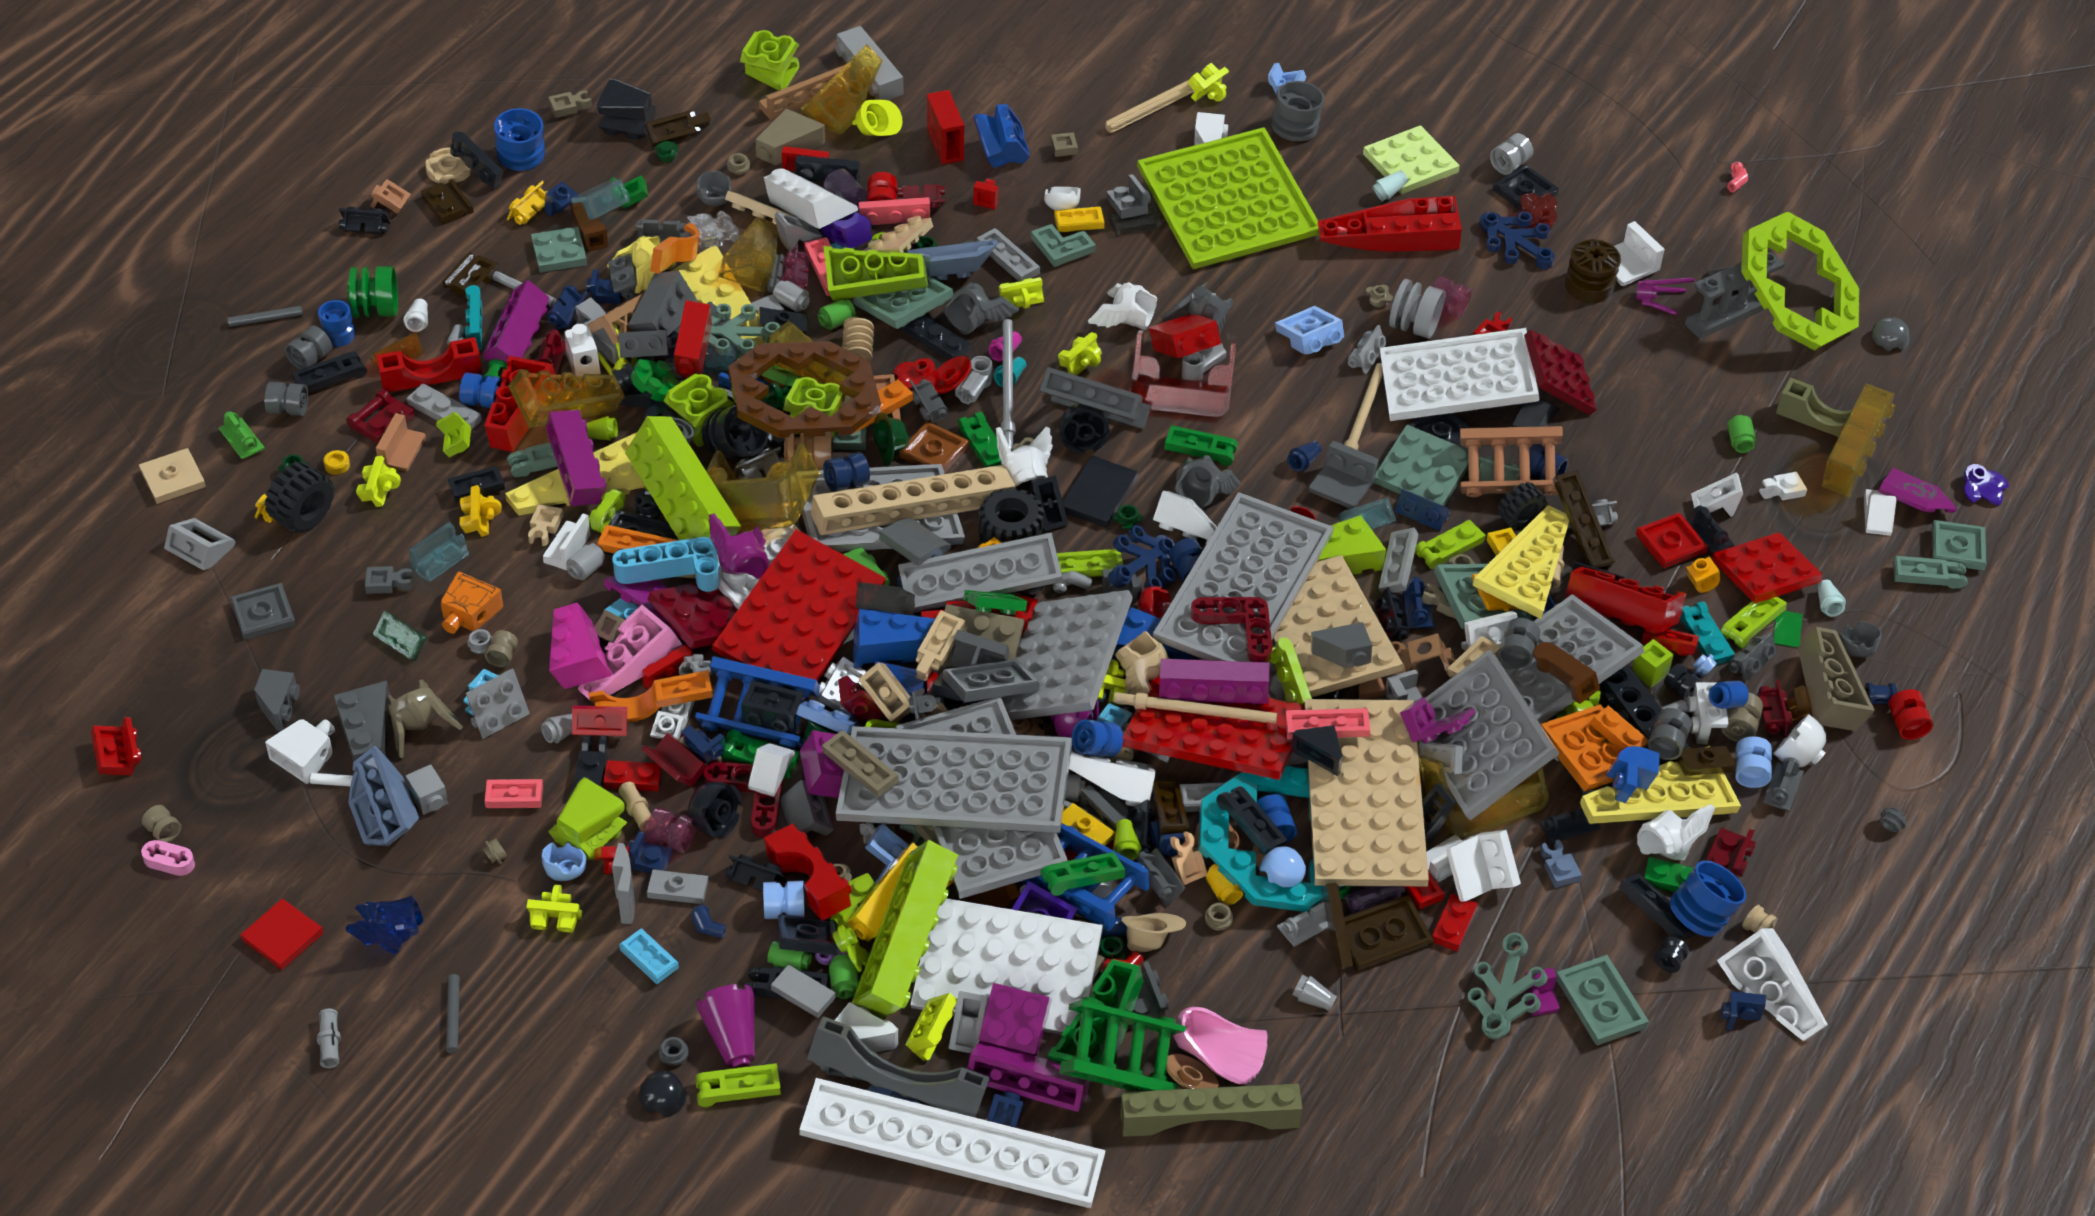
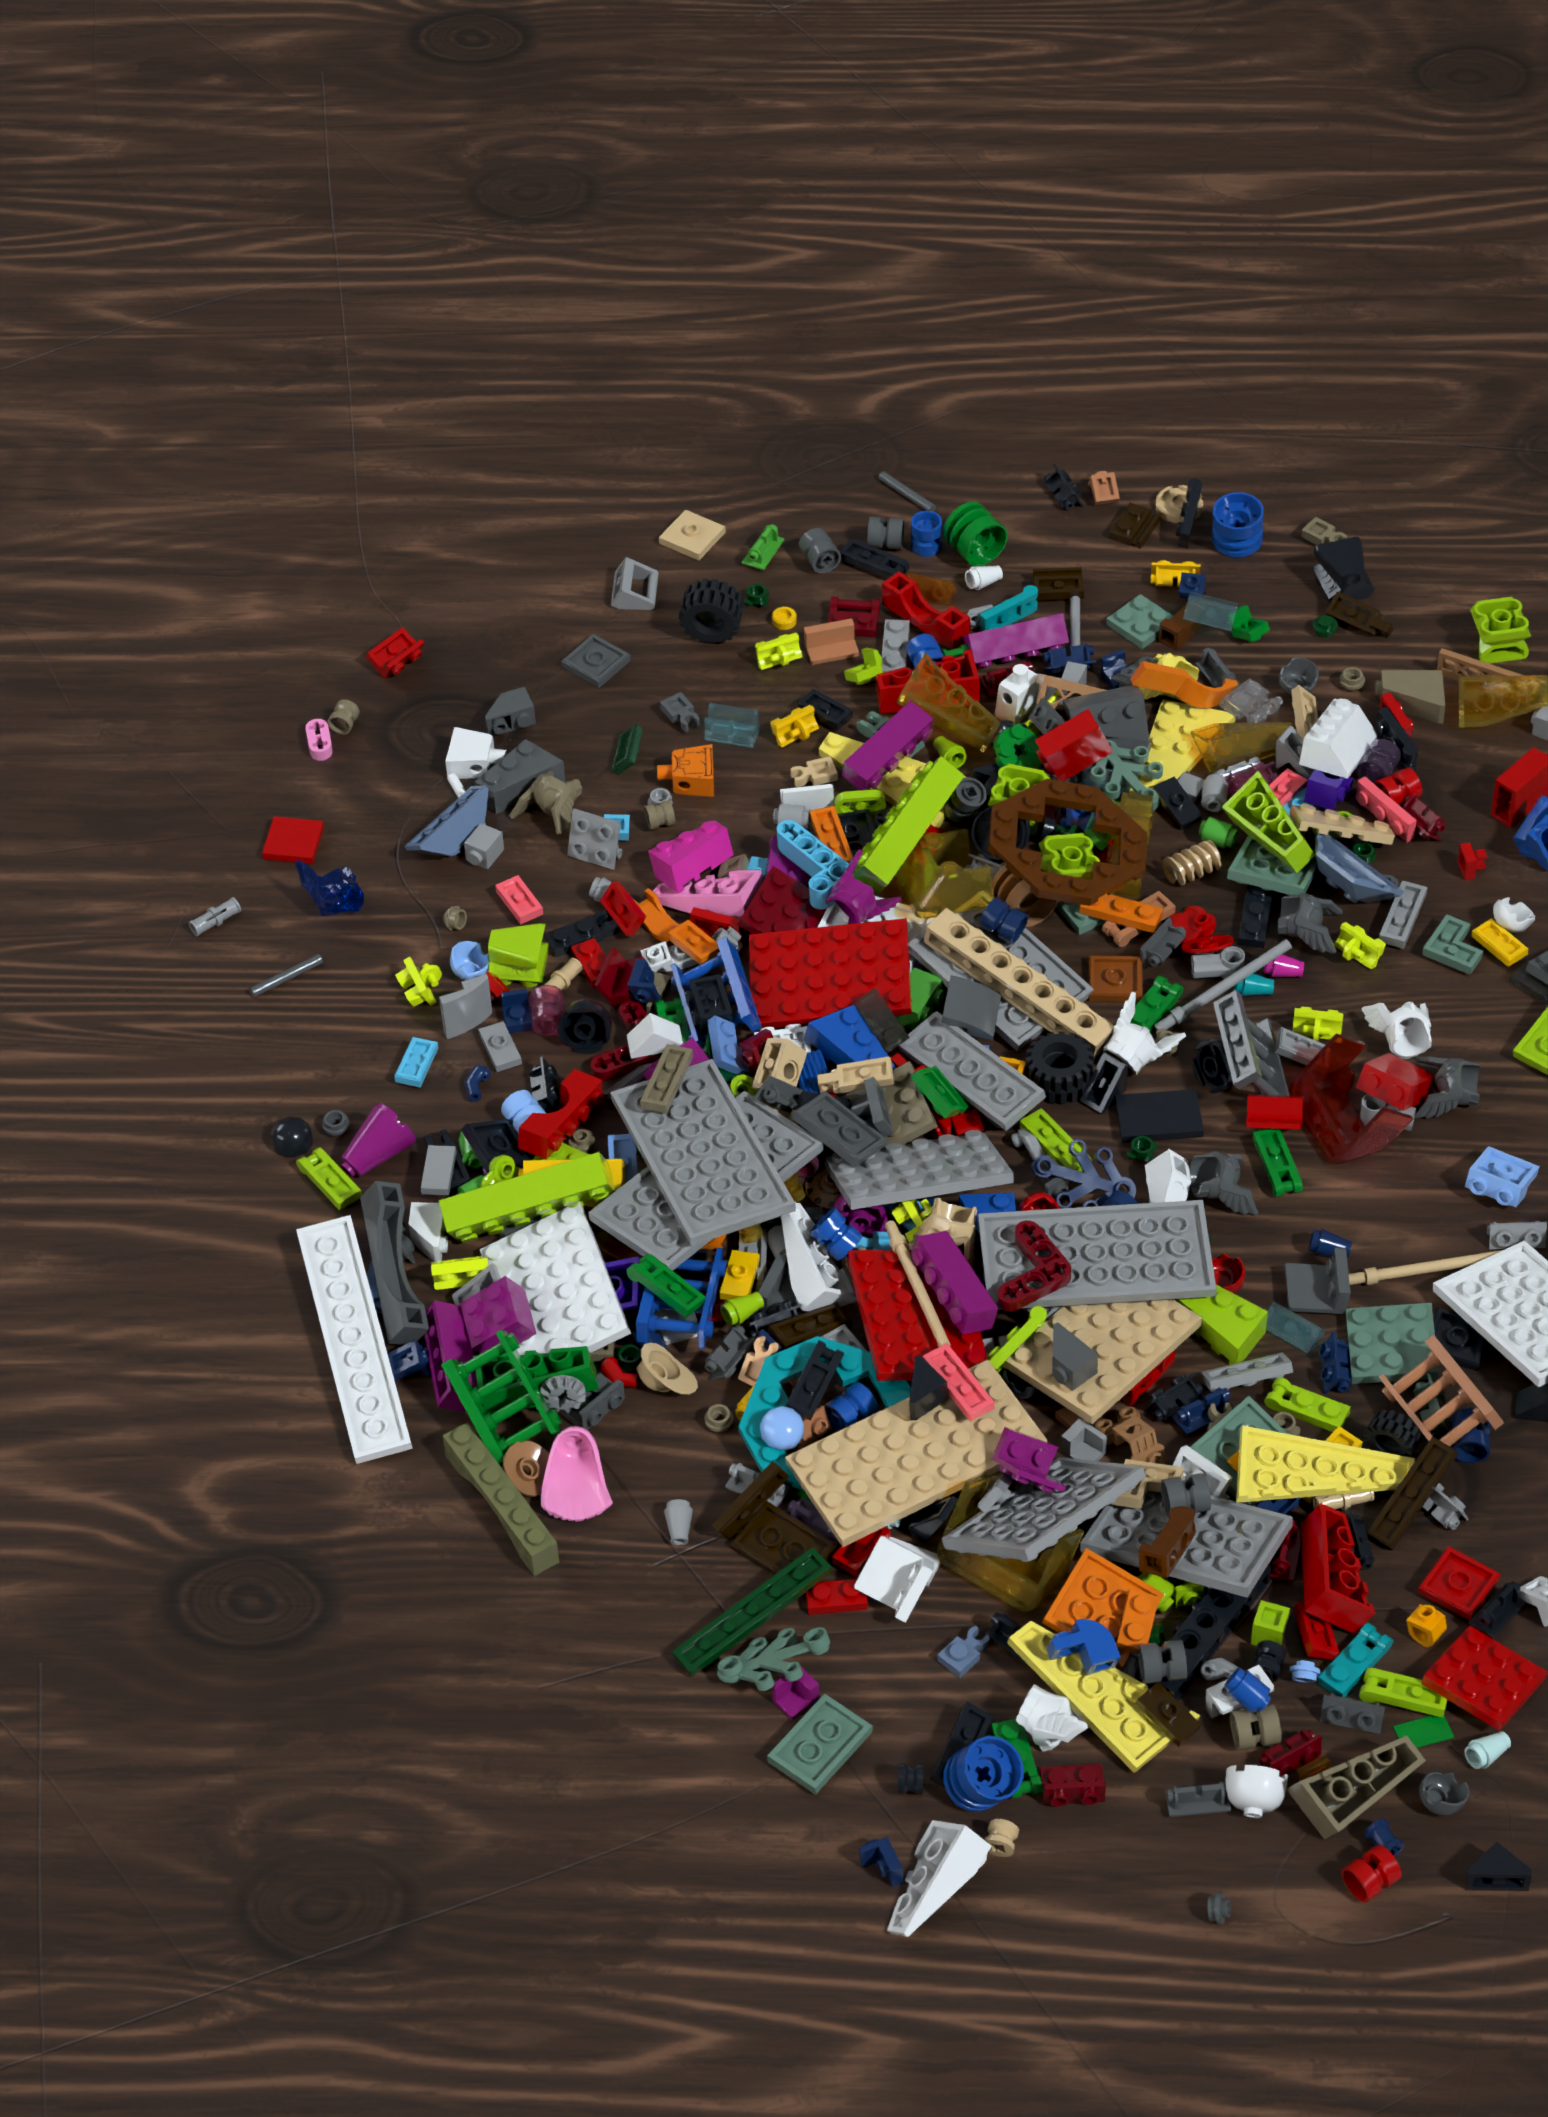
camera: 65 degrees right, 0 degrees up
(878, 118) = (1497, 739): neon yellow piece -> none
(889, 436) = (1095, 940): dark green piece -> none
(1104, 373) = (1296, 1046): none -> light grey plate
(1141, 1000) = (555, 1387): none -> light grey gear
(1155, 421) = (1274, 1111): none -> red panel
(1446, 983) = (752, 1612): none -> dark green plate
(1753, 762) = (1201, 1758): light blue wheel -> none
(1939, 642) = (1498, 1872): none -> black slope

